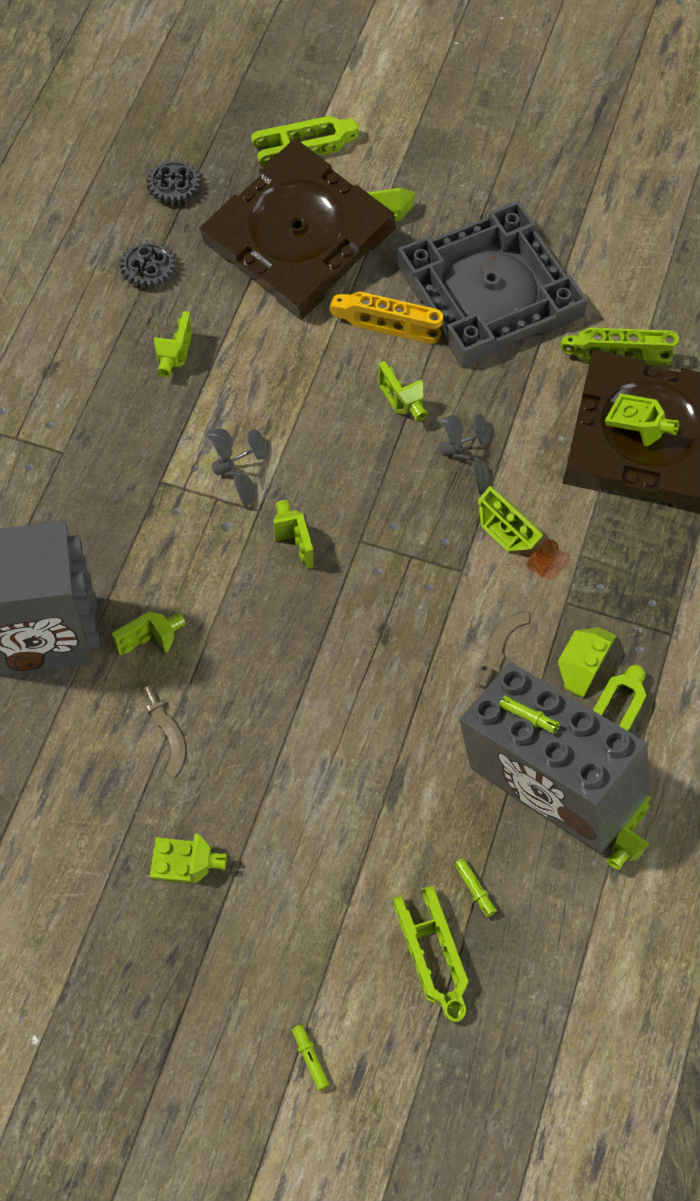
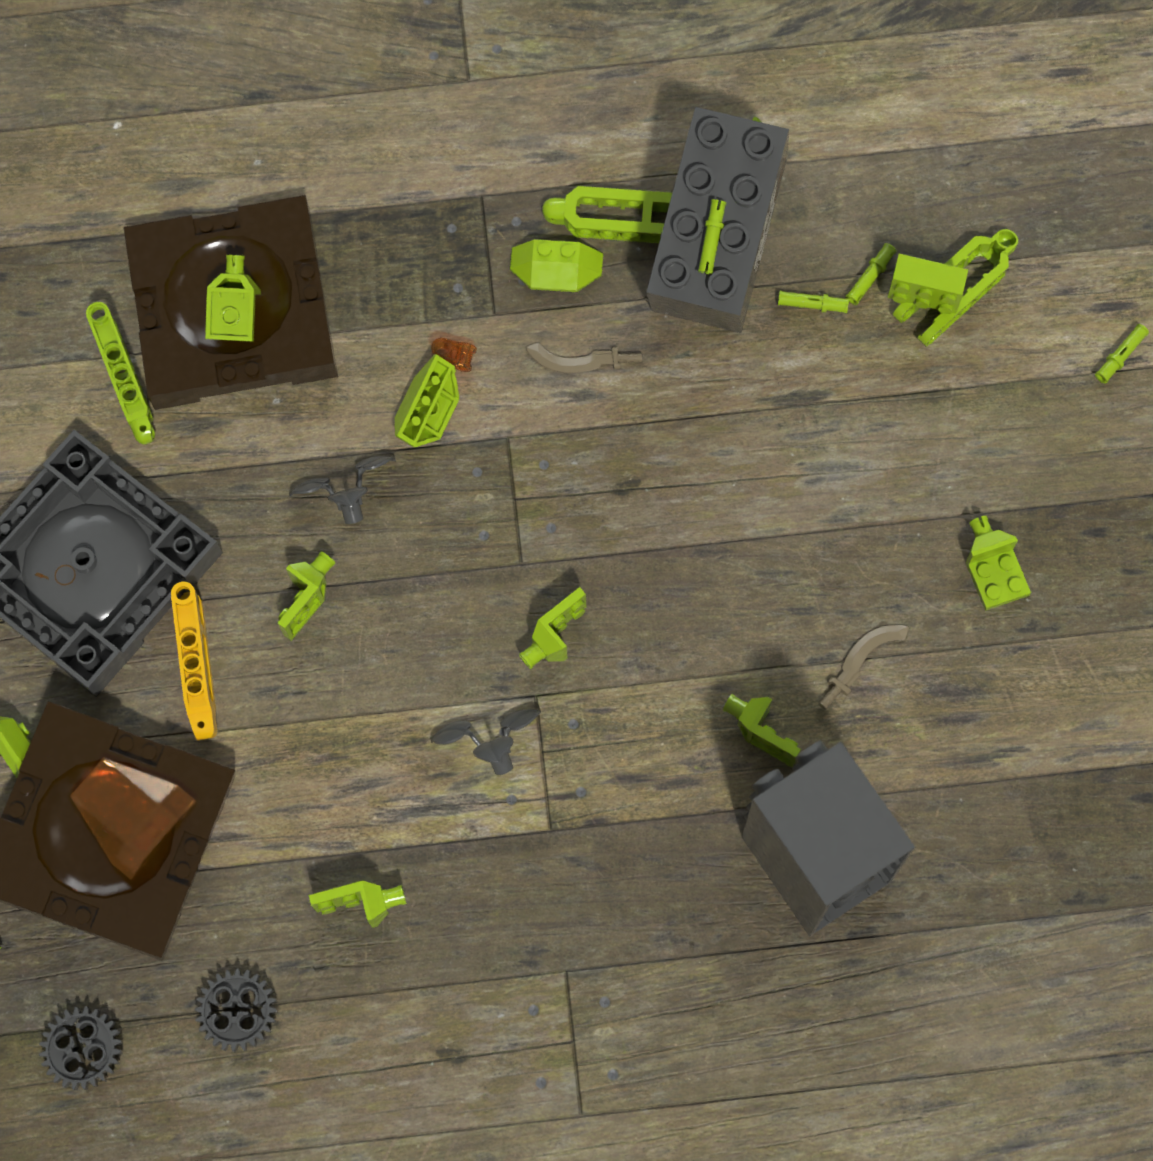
camera: 110 degrees left, 10 degrees up
(299, 235) = (129, 812): none -> clear orange wedge
(435, 907) = (927, 284): none -> lime brick
(466, 838) = (813, 301): none -> lime pin

